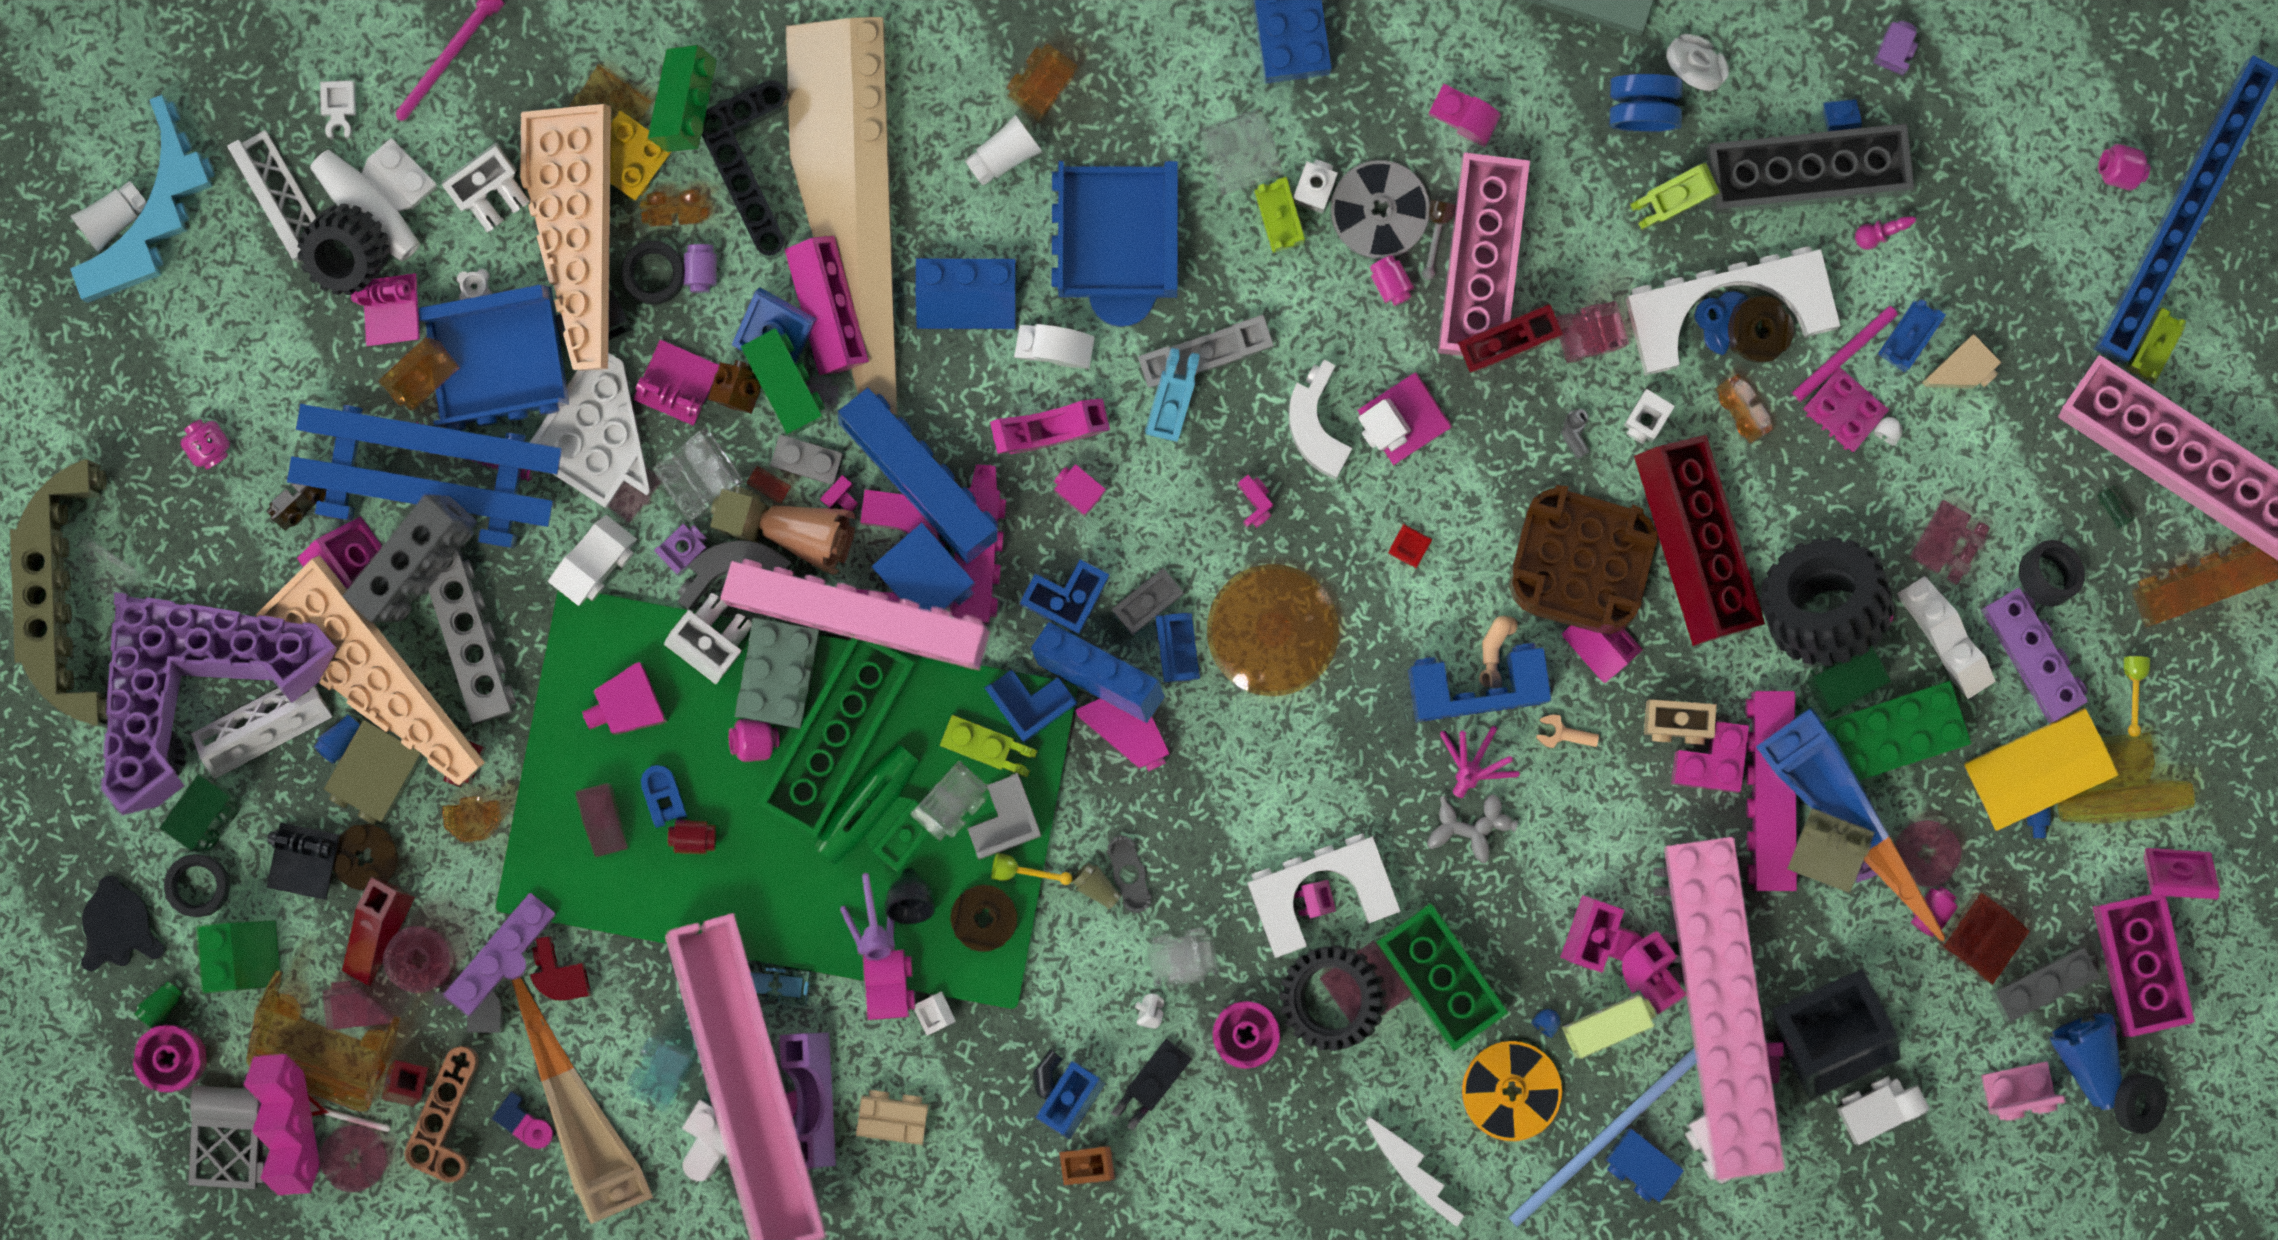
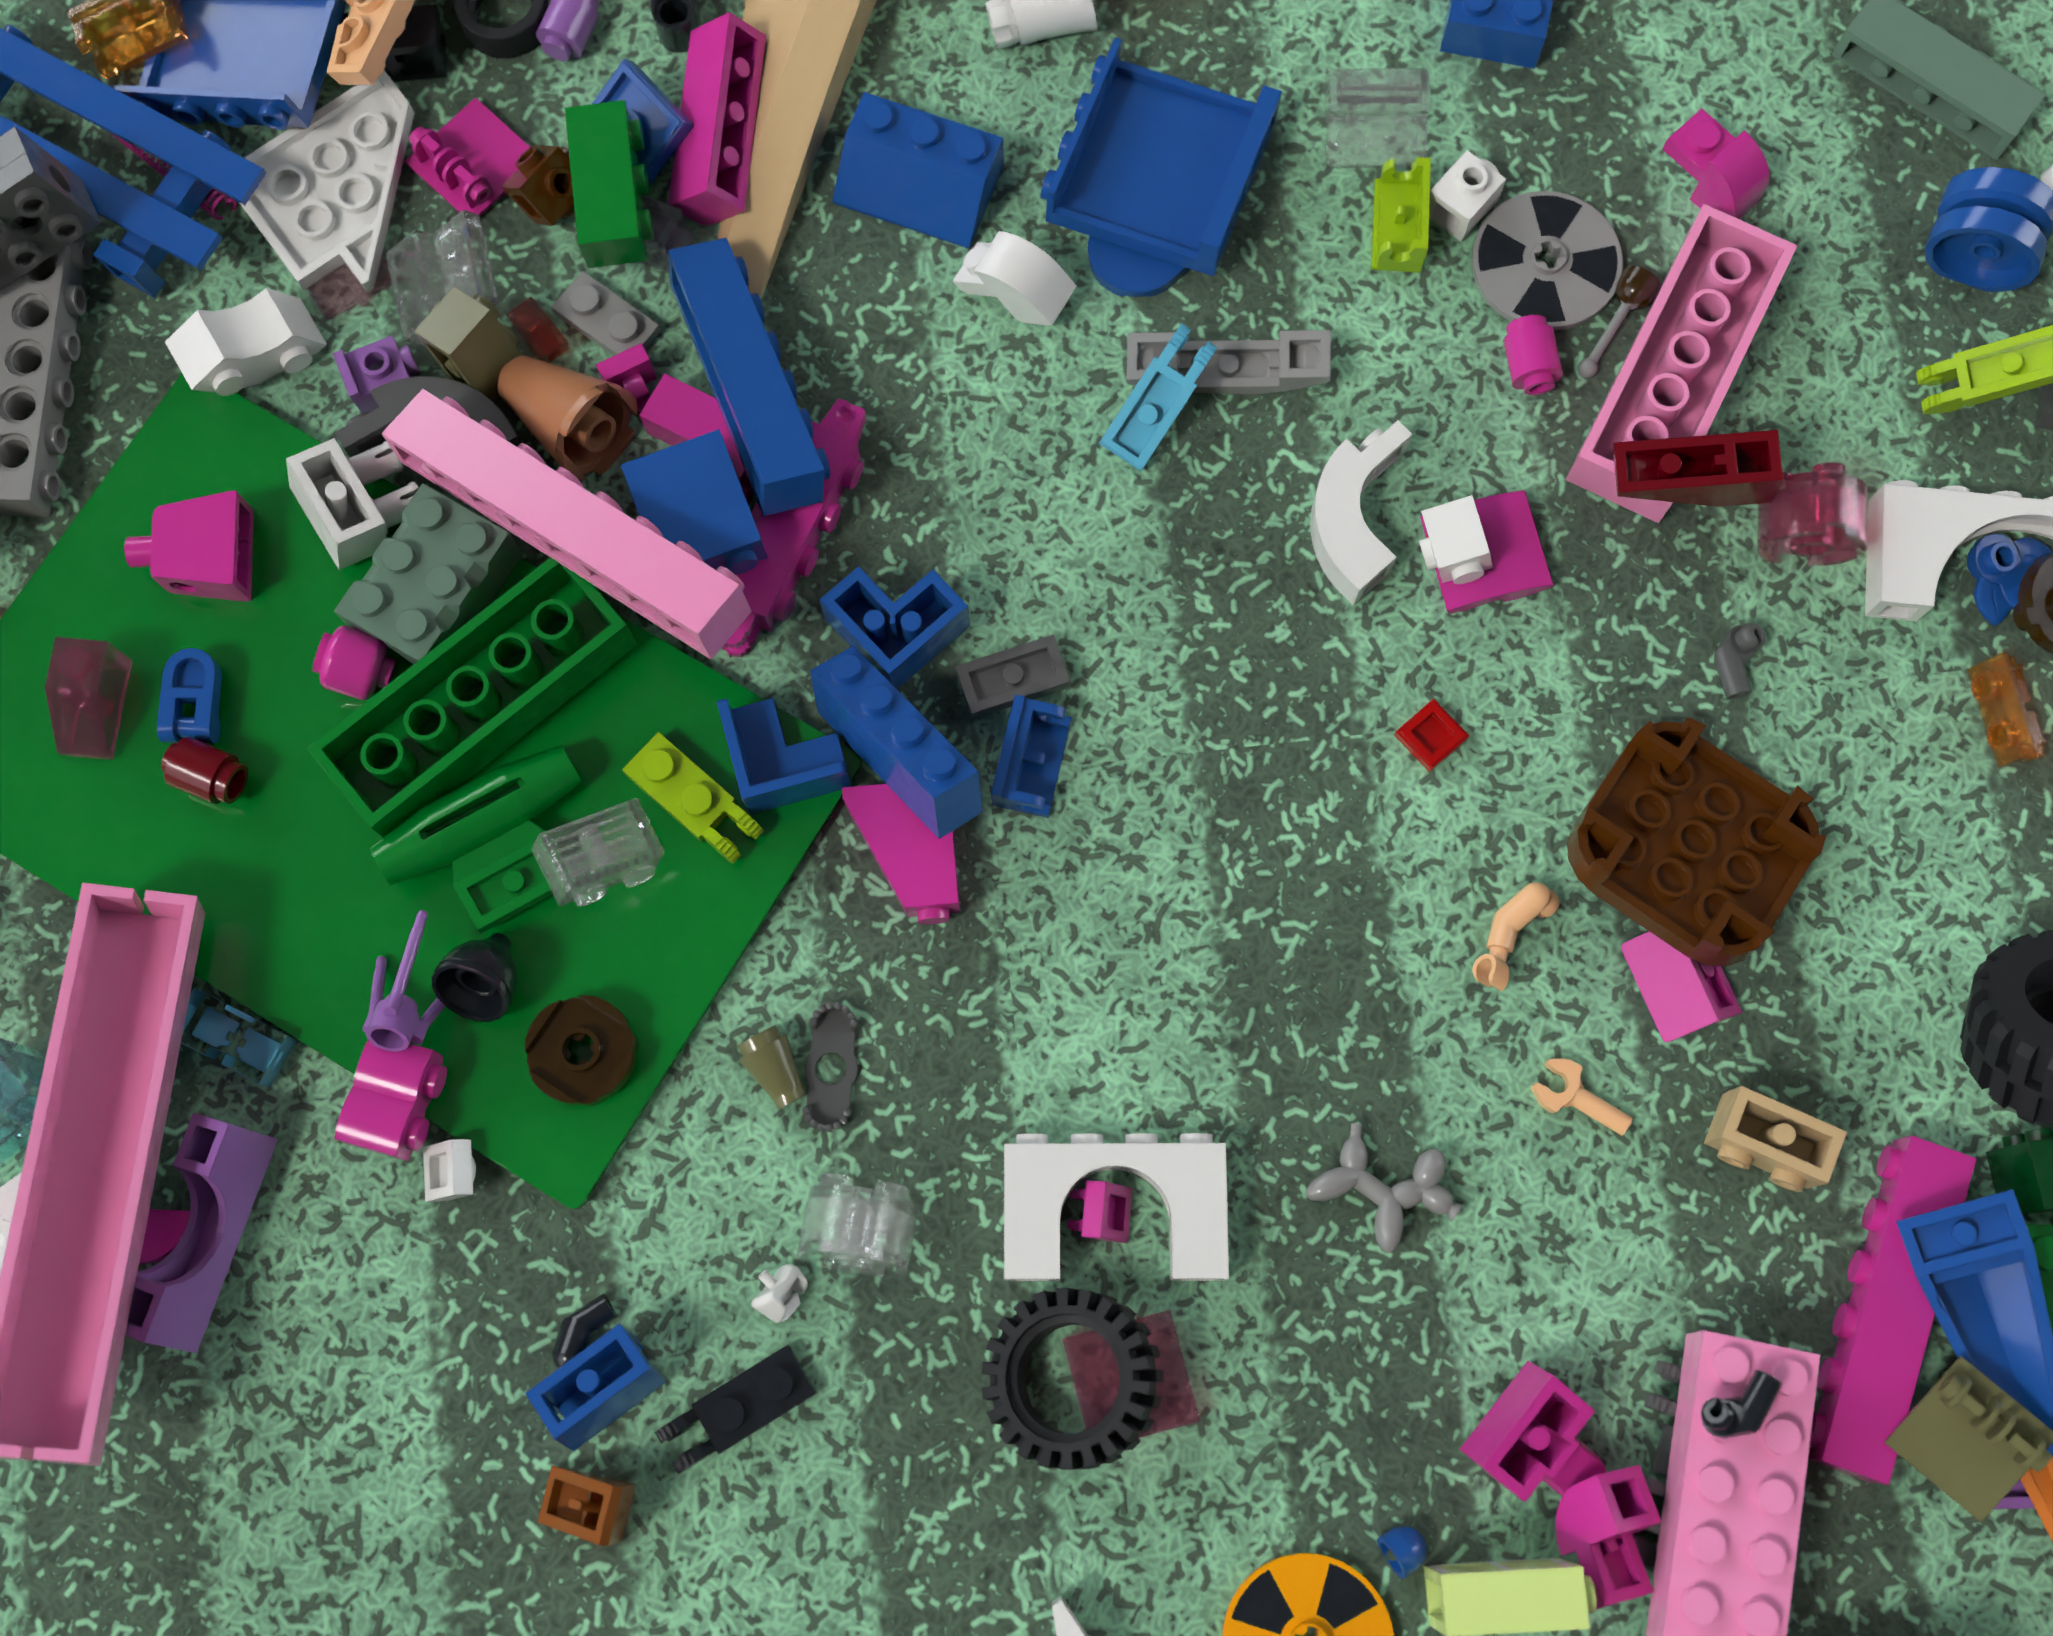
camera: 25 degrees right, 10 degrees down
(892, 1118) = (314, 1311): tan brick -> none
(1006, 867) = (647, 986): hinge -> none
(1014, 820) = (684, 927): light grey panel -> none
(1050, 427) = (938, 385): dark pink arch -> none
(1078, 489) = (973, 485): dark pink brick -> none
(1252, 1052) = (879, 1386): dark pink brick -> none
(1256, 492) = (1230, 581): dark pink bracket -> none
(1272, 630) = (1183, 784): clear orange dish -> none
(1441, 977) = (1259, 1413): green brick -> none
(1470, 772) = (1412, 1103): dark pink plant -> none
(1527, 683) = (1544, 1003): blue plate -> none
(1654, 406) = (1869, 657): white brick -> none
(1699, 539) = (1890, 872): dark red brick -> none
(1699, 884) = (1744, 1413): none -> black arm
(1718, 769) = (1813, 1236): dark pink brick -> none

